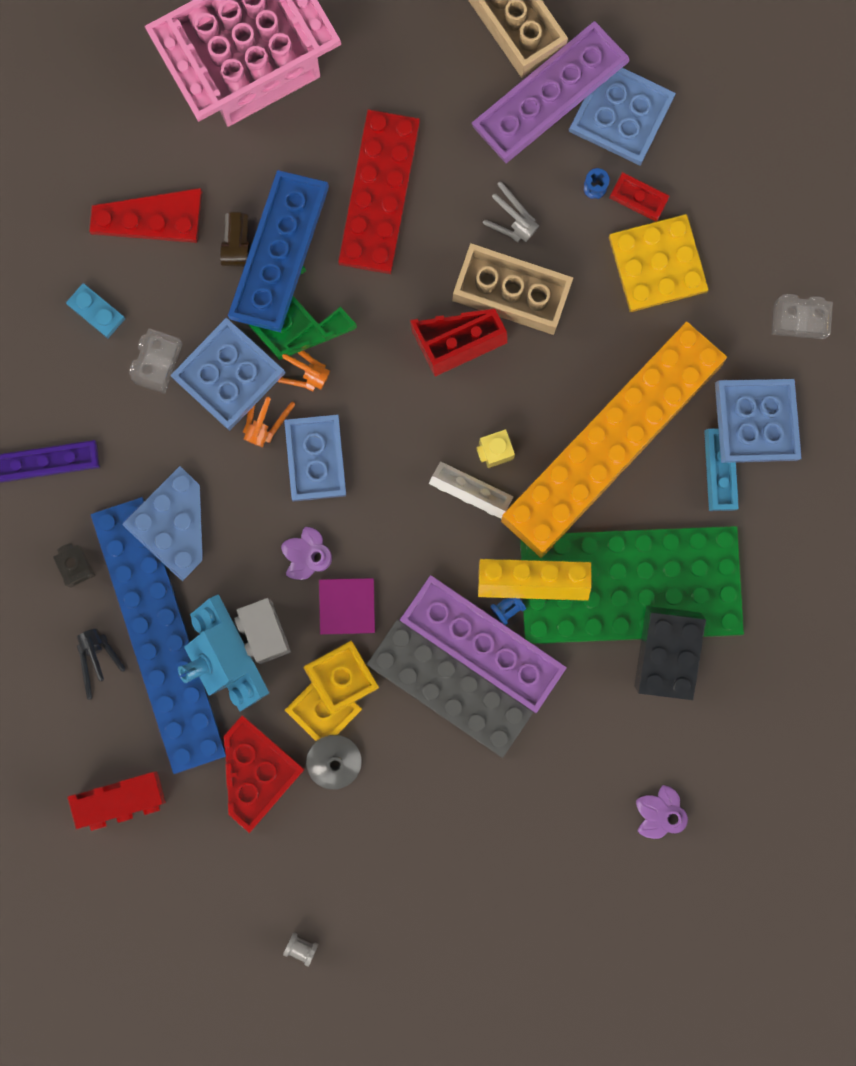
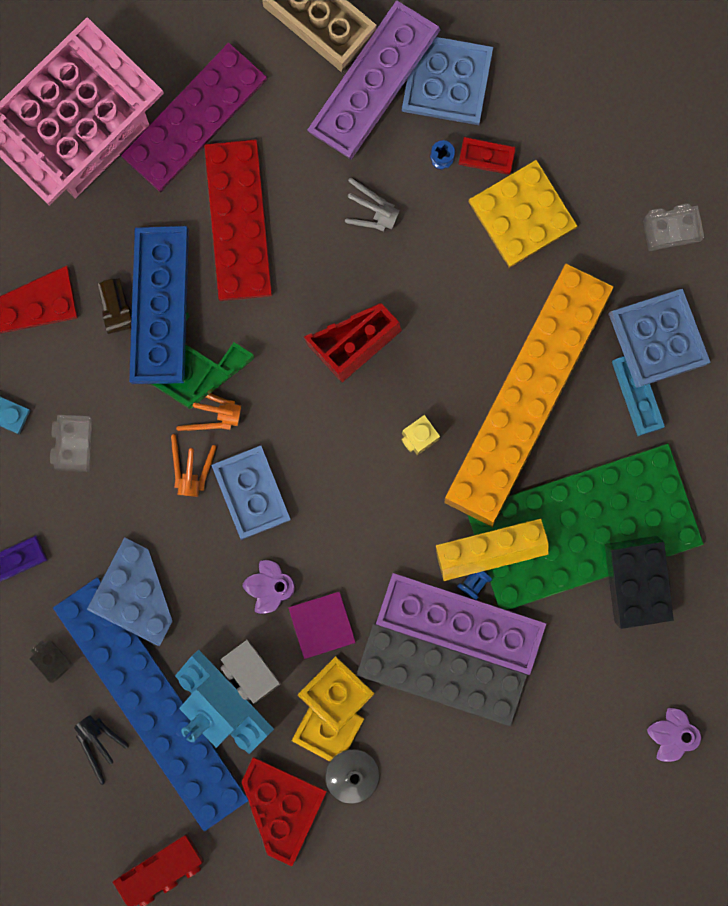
camera: 15 degrees left, 0 degrees up
(228, 374) = (144, 436): medium blue plate -> none
(365, 81) = (194, 117): none -> magenta plate
(470, 490) = (407, 481): white plate -> none
(513, 288) = (392, 278): tan brick -> none

